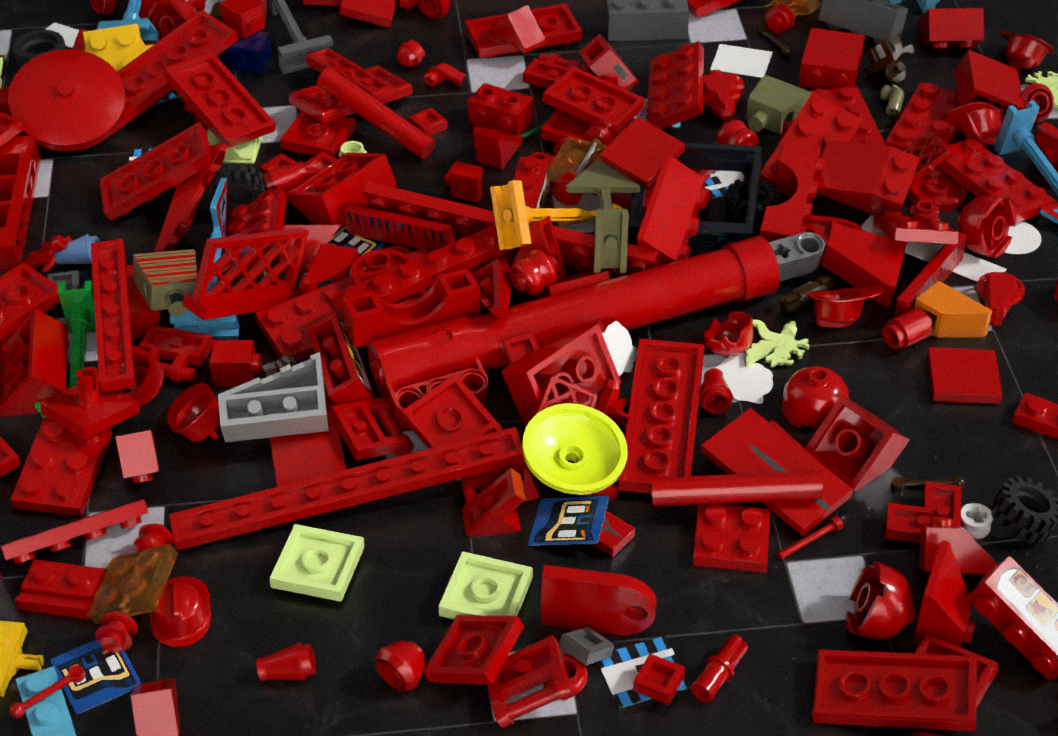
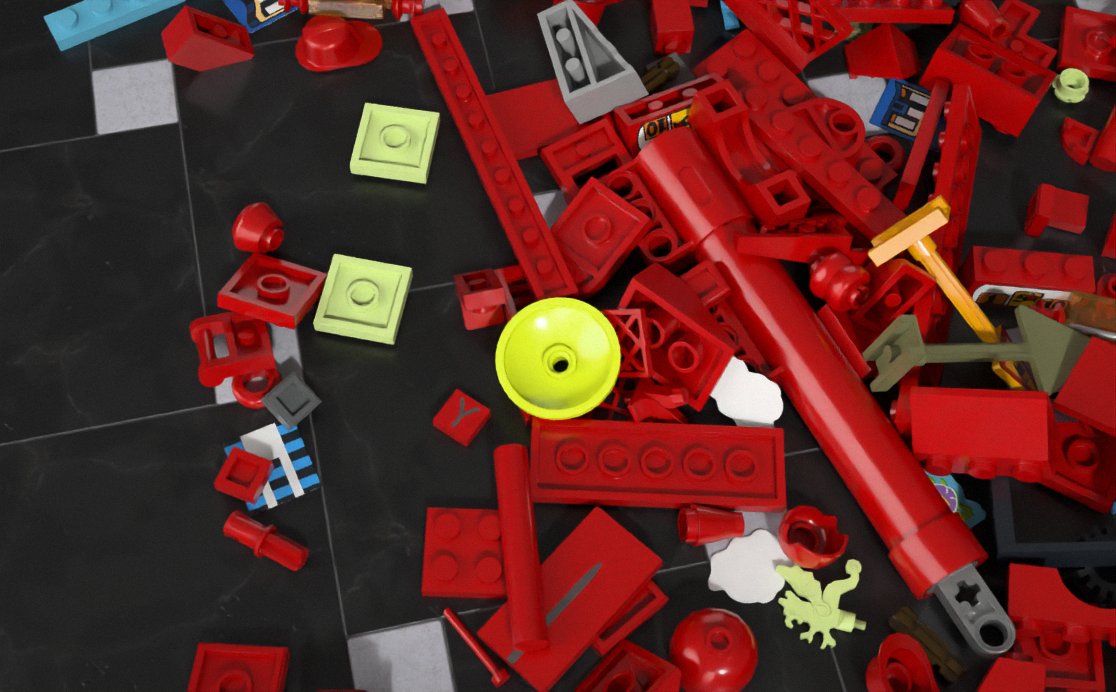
camera: 80 degrees right, 20 degrees up
(290, 663) = (263, 139): red cone -> none
(328, 266) = (838, 82): red slope -> none
(403, 160) = (1078, 139): none -> red tile
(569, 521) = (469, 375): sticker -> none
(595, 600) = (330, 395): red tile -> none

